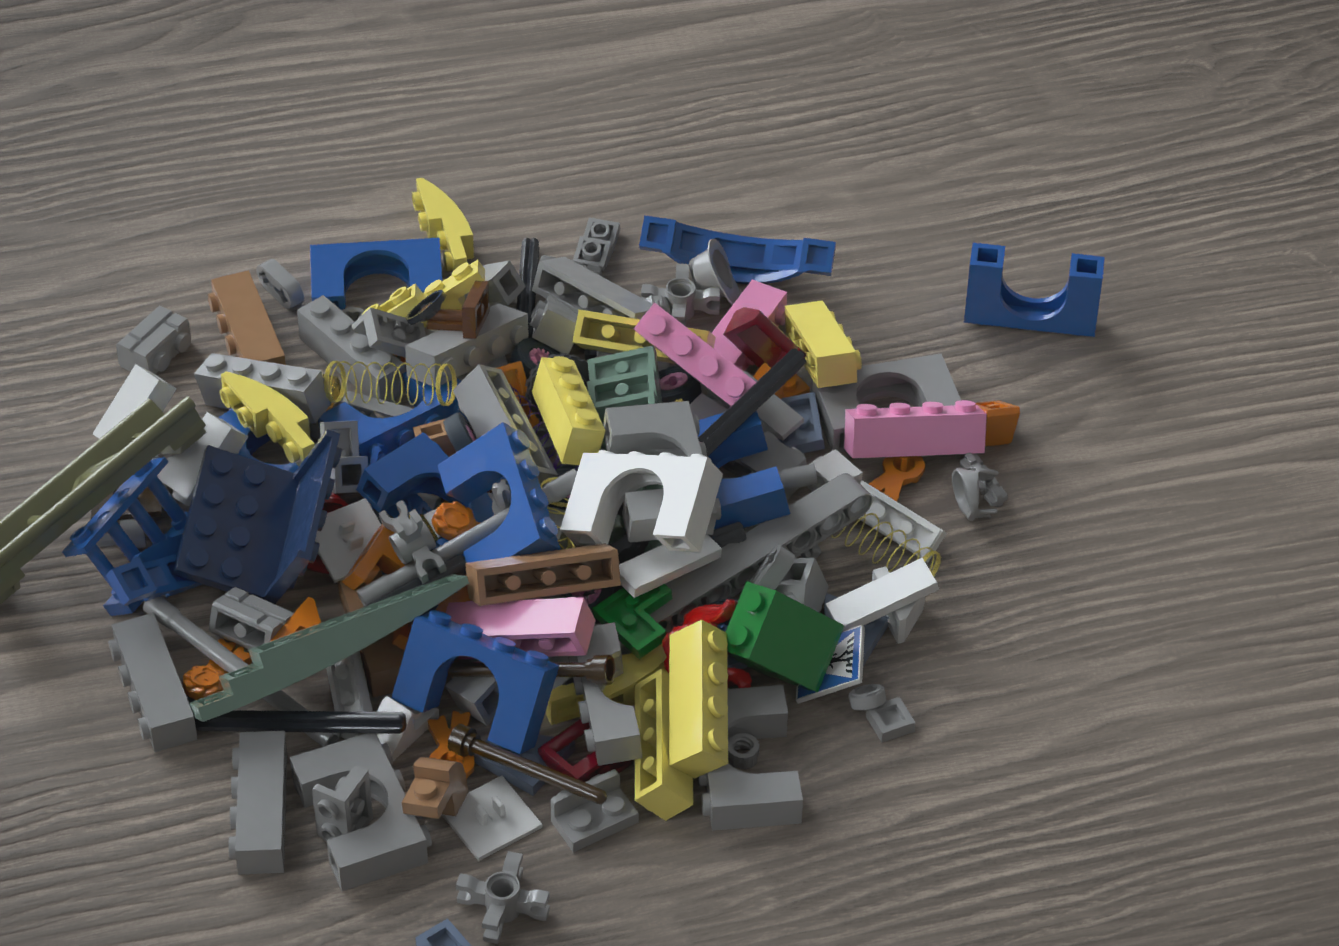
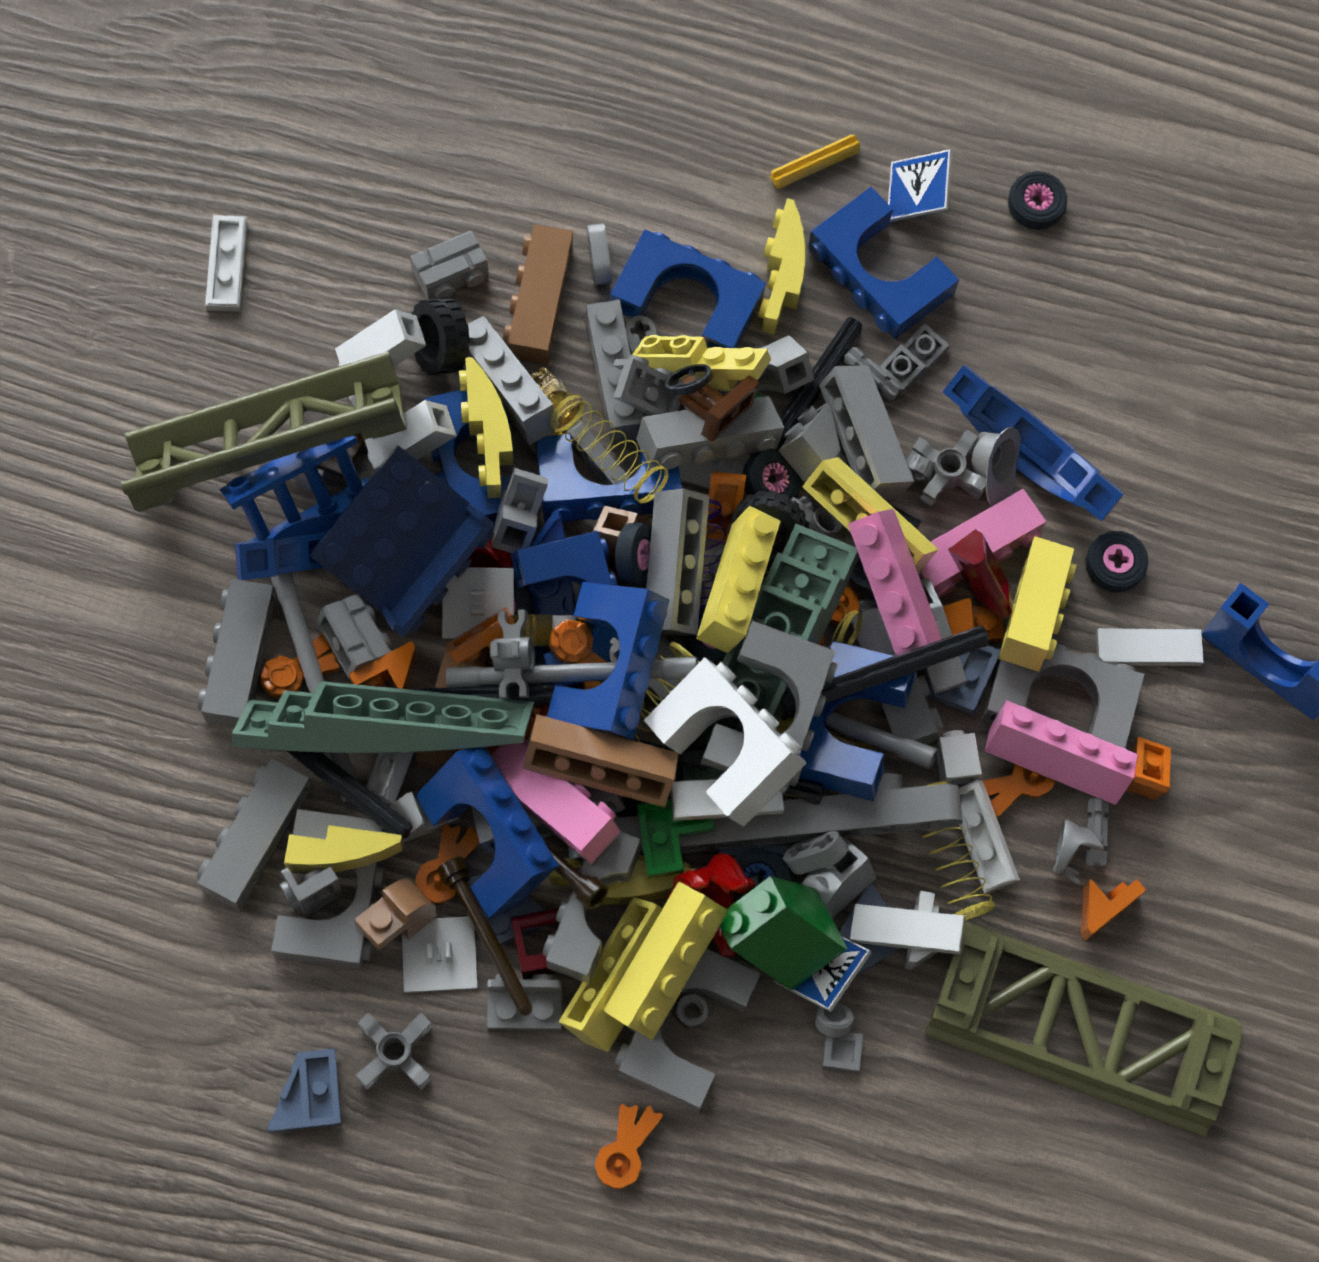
camera: 25 degrees right, 25 degrees up
(200, 372) = (444, 334): none -> black tyre
(366, 747) = (340, 850): none -> light yellow slope
(419, 156) = (815, 161): none -> yellow axle
(518, 133) = (920, 185): none -> piece
(549, 216) = (891, 303): none -> blue arch
(620, 109) = (1048, 189): none -> black bush
(758, 883) = (619, 1161): none -> orange piece
(850, 310) = (1102, 569): none -> black bush
(945, 339) = (1150, 646): none -> white tile
(1026, 522) = (1099, 910): none -> orange slope
(1182, 567) = (1208, 1045): none -> olive piece

